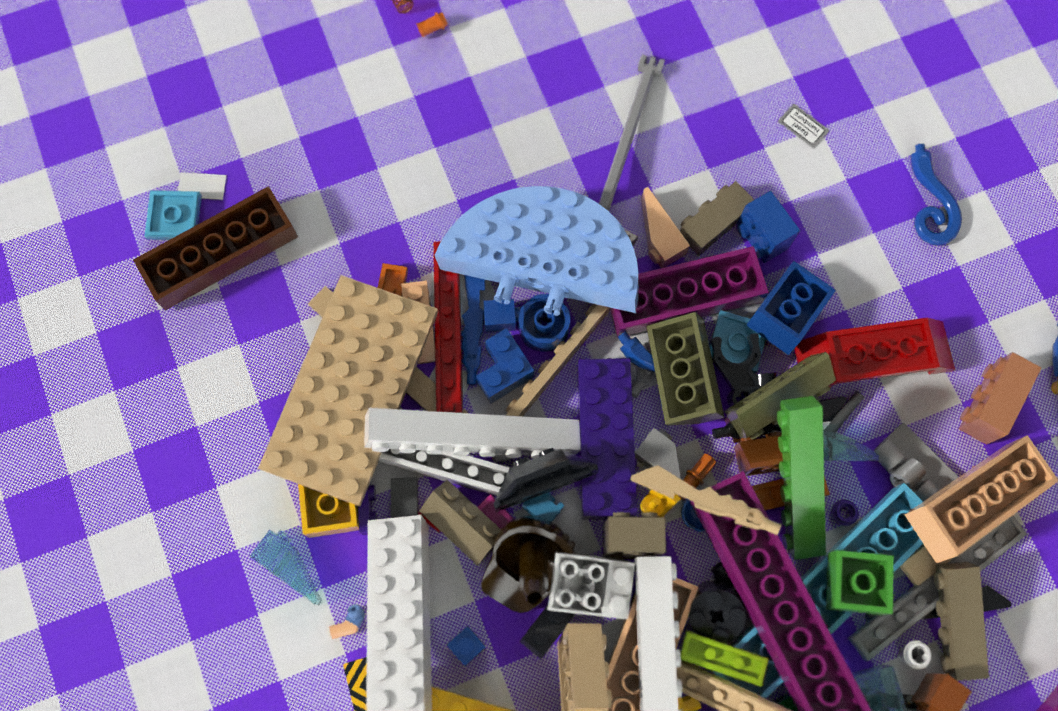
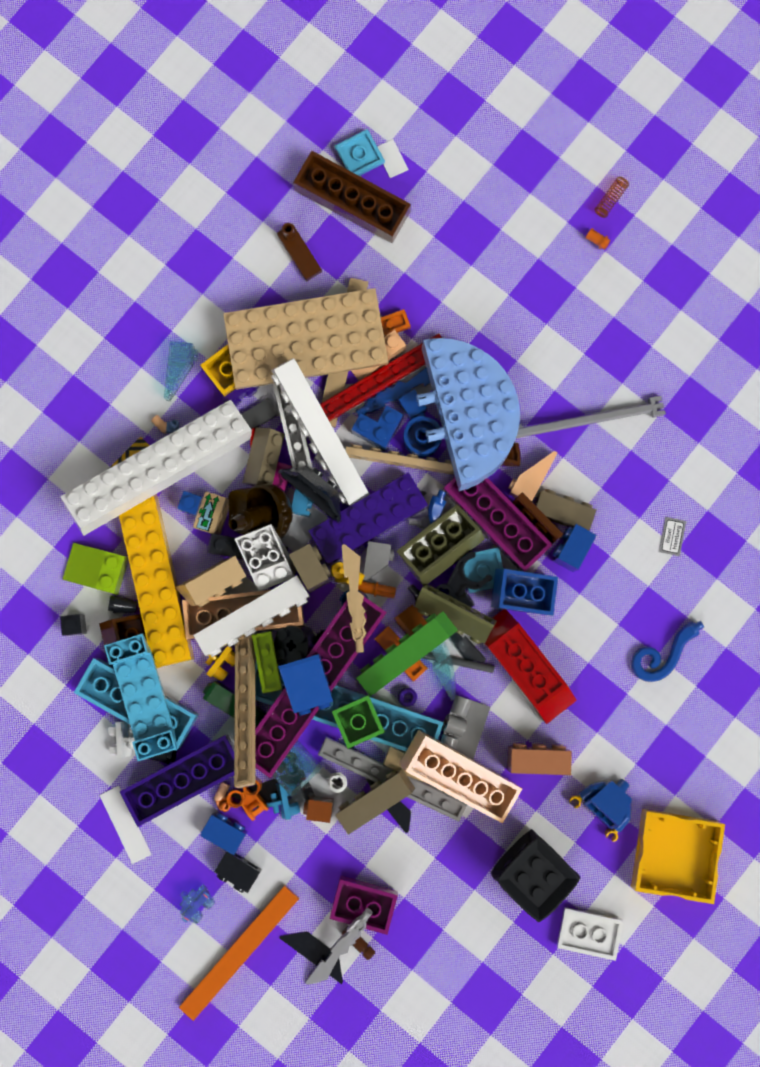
camera: 60 degrees right, 10 degrees up
(239, 344) = (299, 251): none -> reddish brown piece
(493, 626) = (212, 513): none -> panel
(712, 244) = (537, 518): none -> reddish brown tile
(789, 617) = (306, 684): none -> blue slope

